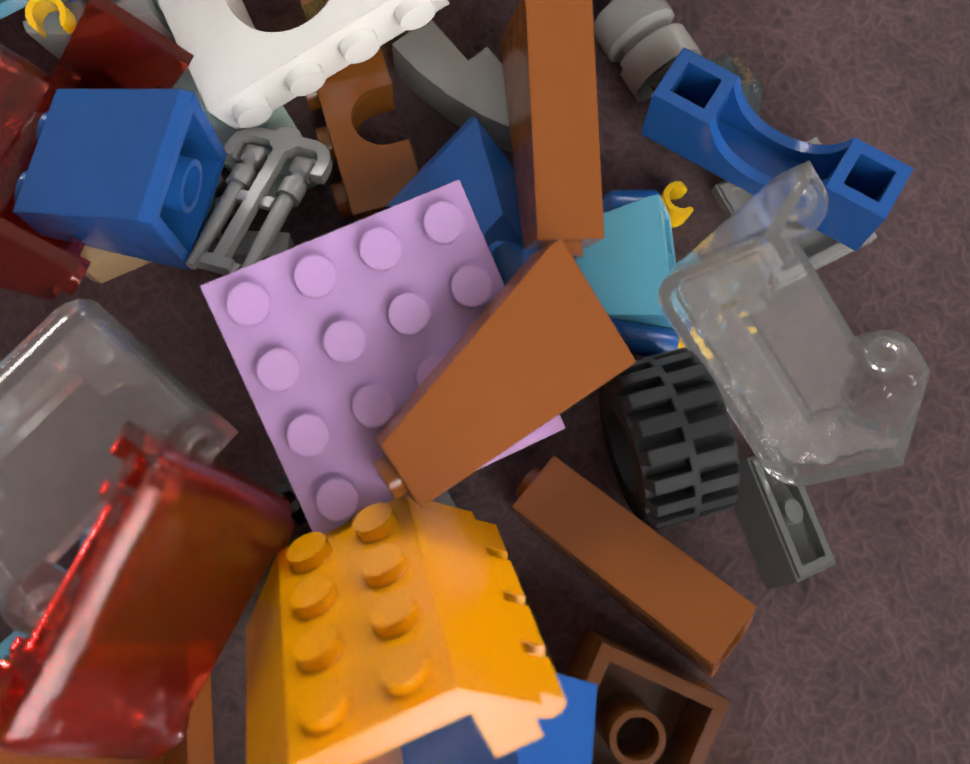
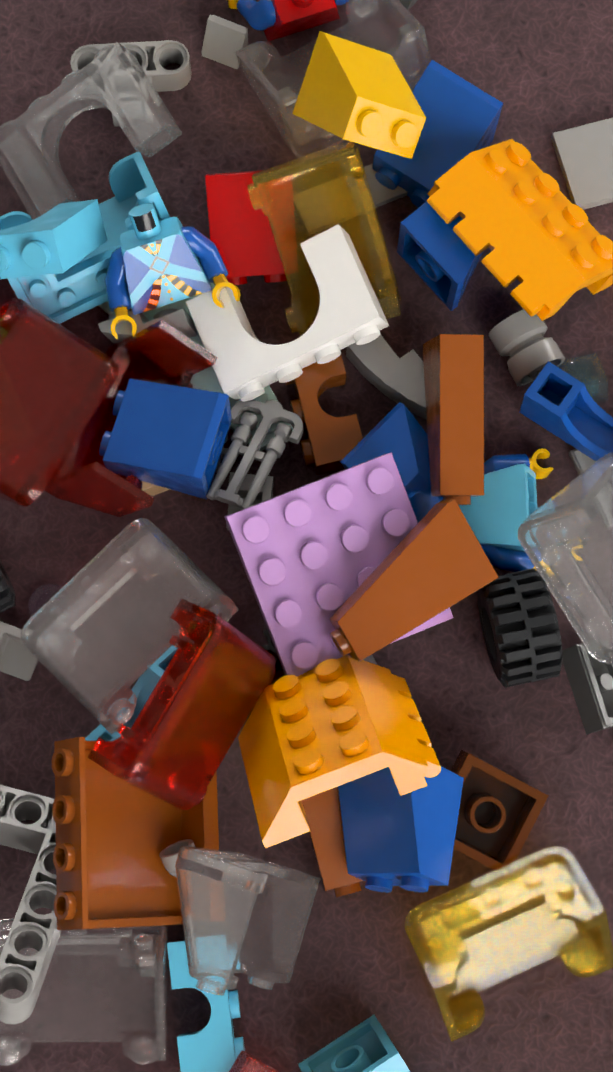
camera: 10 degrees right, 0 degrees up
(635, 565) = (495, 712): dark orange slope -> none

